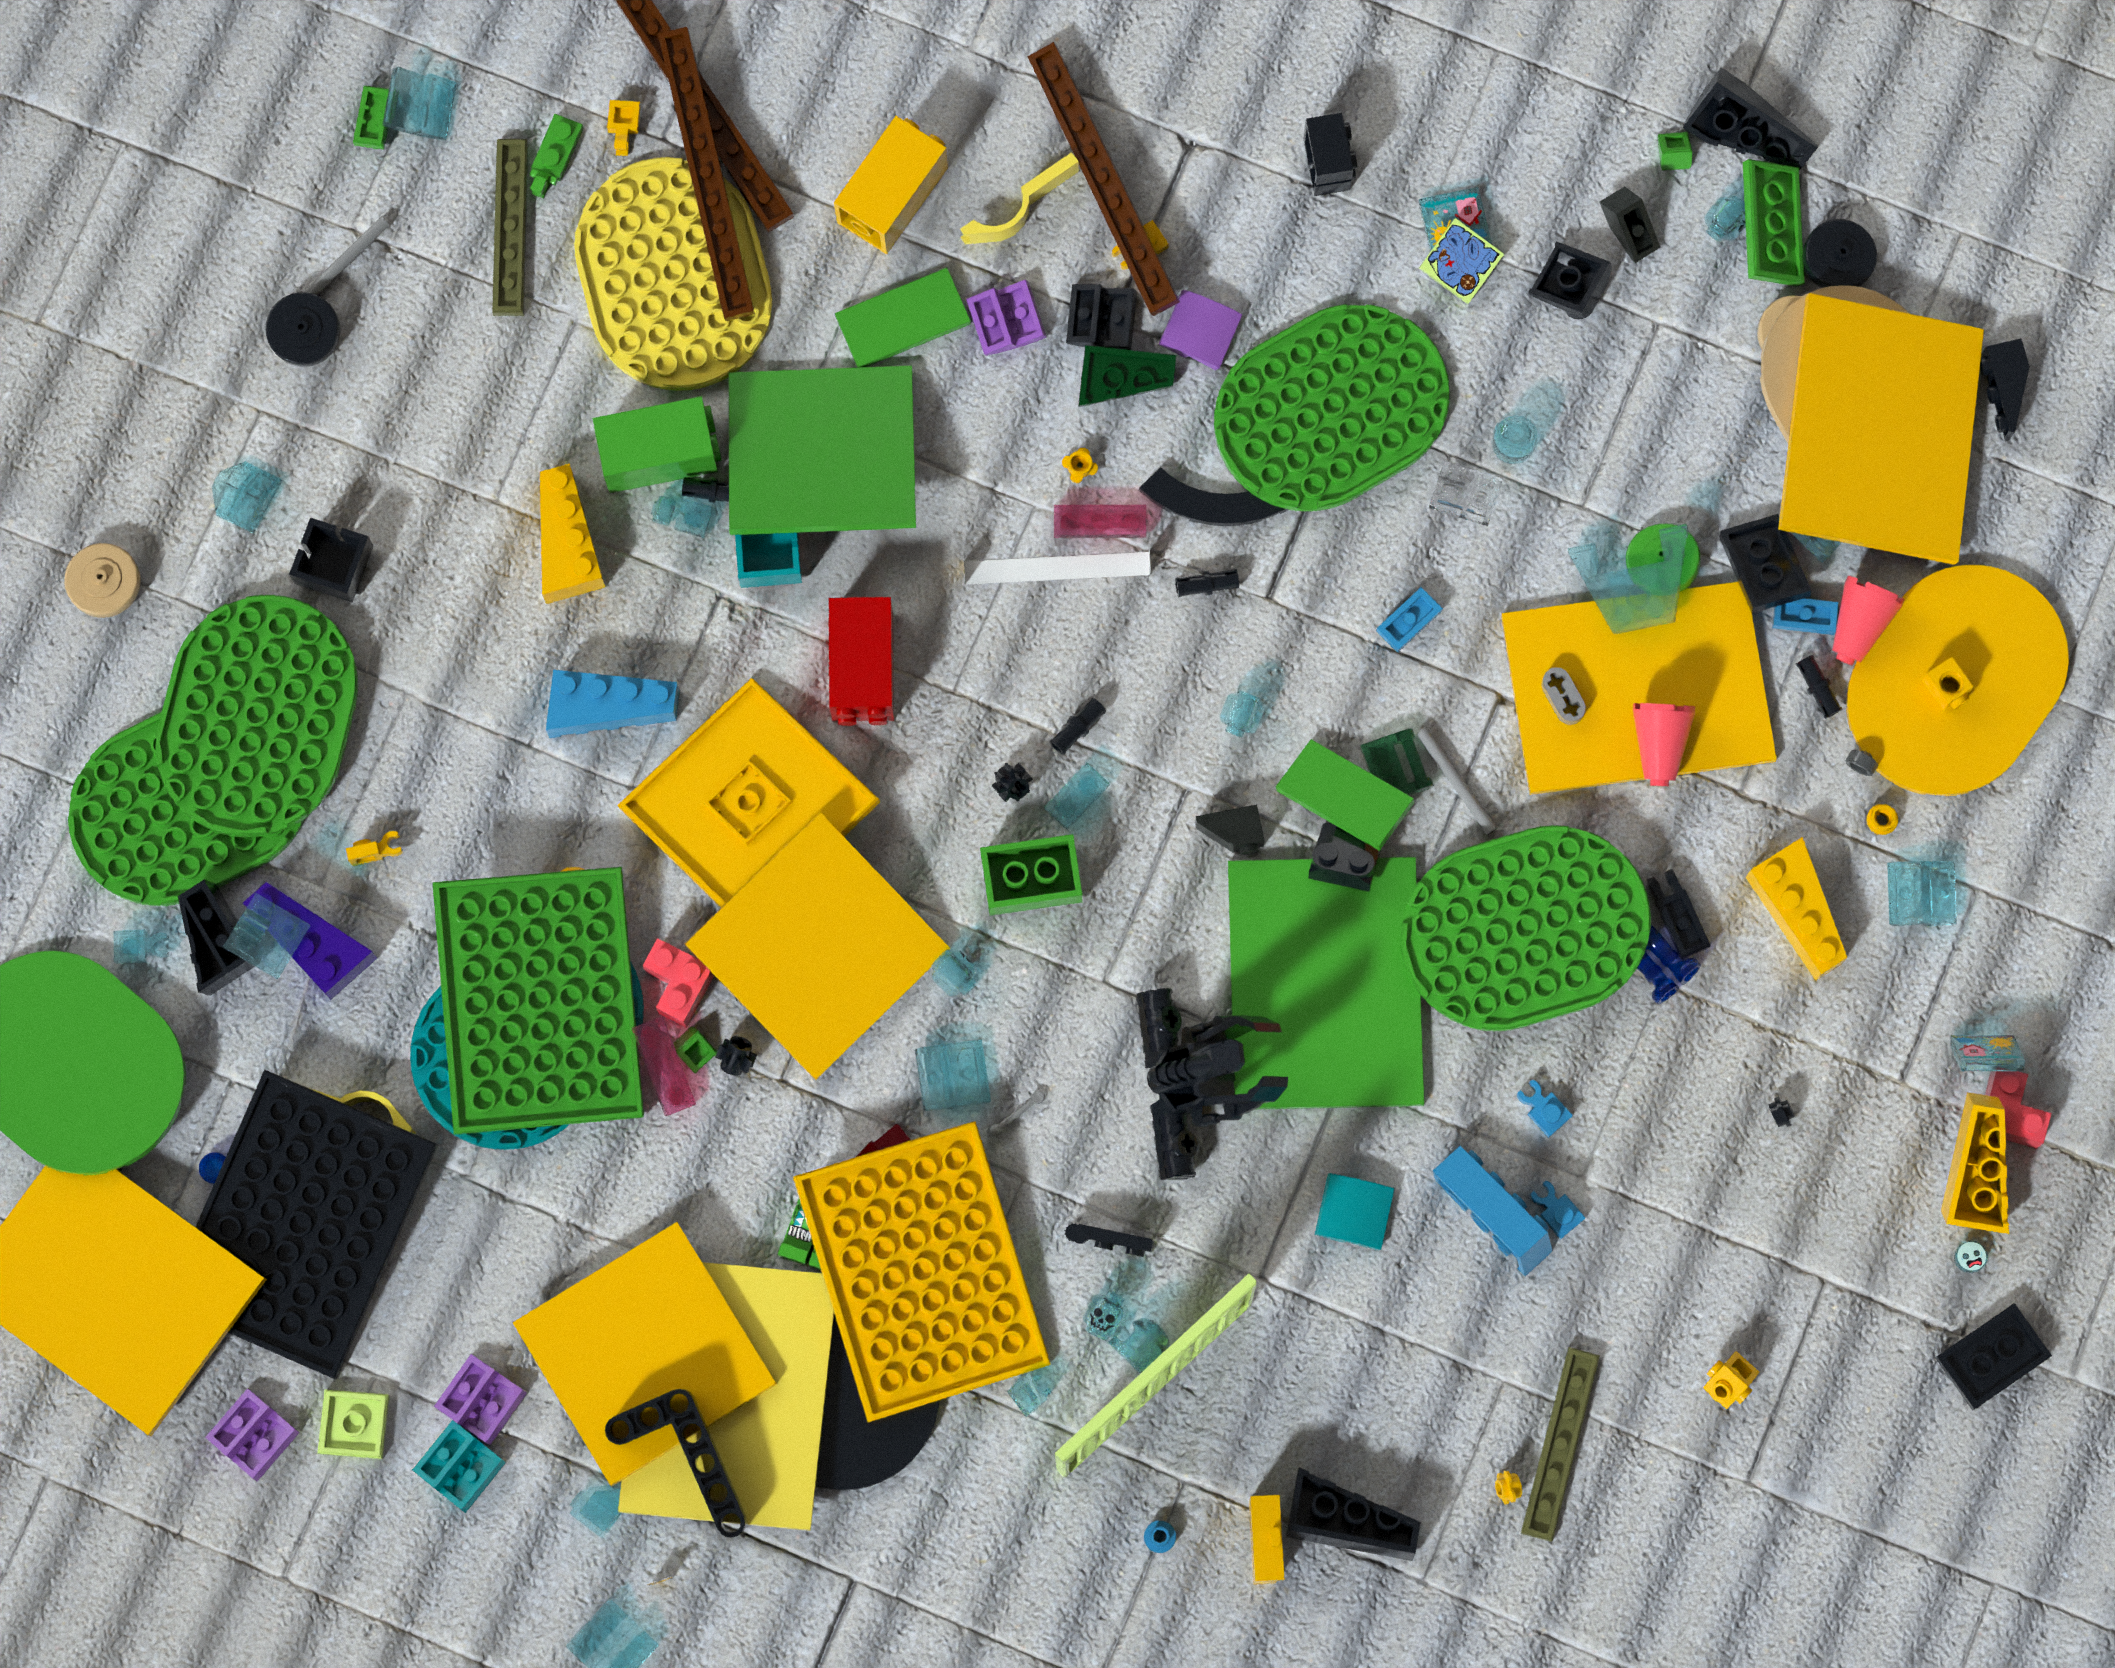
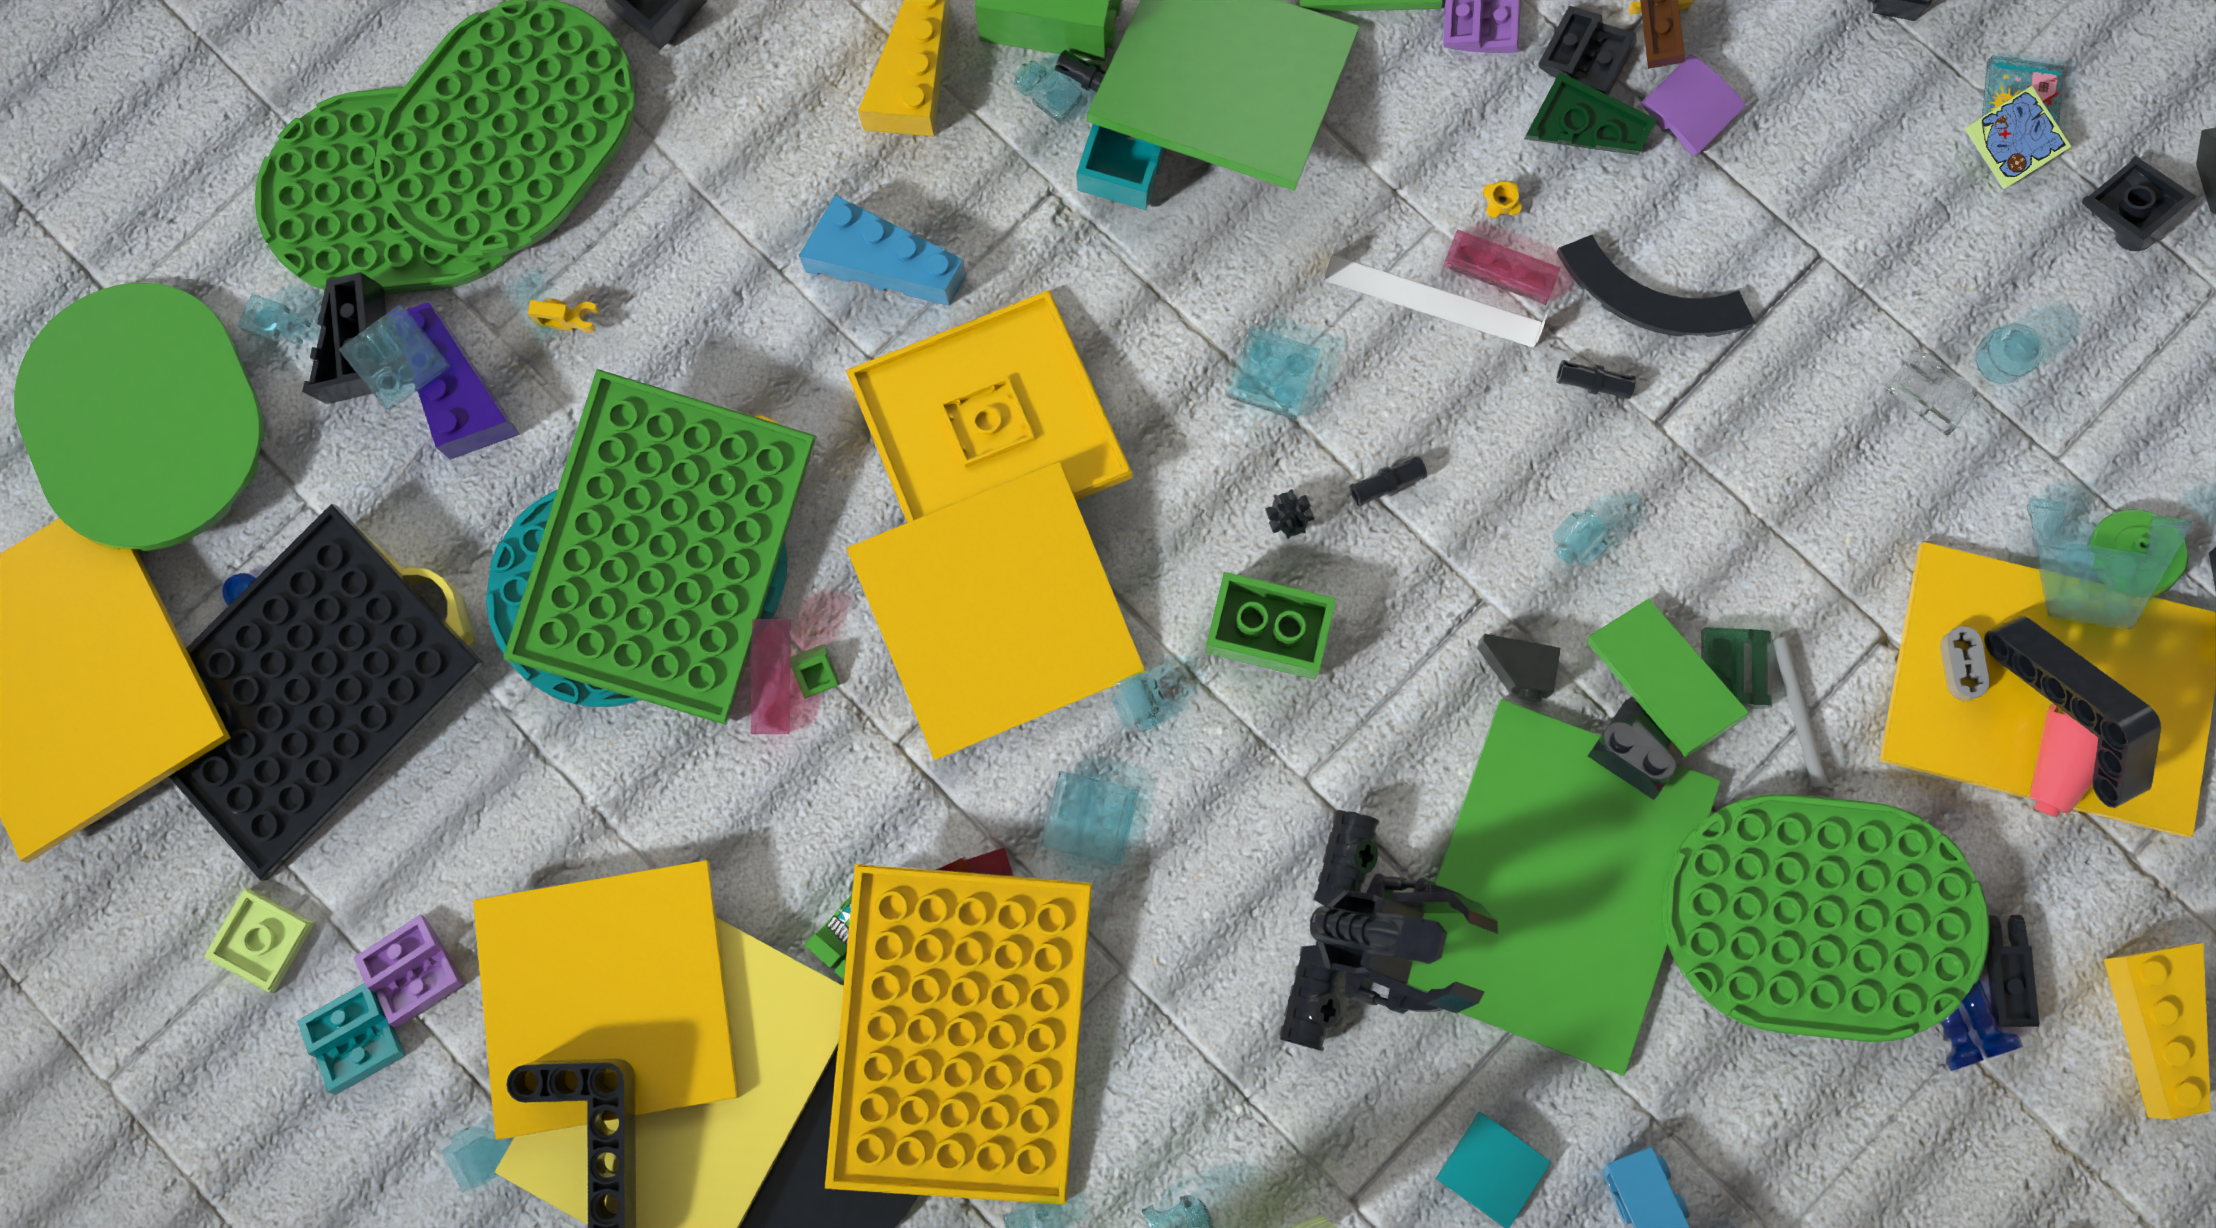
camera: 25 degrees right, 0 degrees up
(252, 1435) = (145, 905): medium lavender slope -> none
(685, 978) = (835, 592): coral brick -> none
(736, 1055) = (855, 697): black gear -> none
(861, 660) = (1175, 313): red brick -> none
(955, 675) = (1273, 373): none -> clear light blue plate
(1037, 1098) = (1176, 882): light grey hinge -> none
(1076, 796) = (1356, 558): clear light blue plate -> none
(1106, 1315) = (1152, 1174): clear light blue head -> none
(1107, 1239) = (1191, 1082): black hinge -> none
(1331, 407) = (1809, 242): bright green tile -> none
(1409, 619) = (1812, 508): dark azure plate -> none
(1547, 1112) = (1766, 1144): dark azure plate -> none
(1654, 693) = (2123, 723): none -> black beam

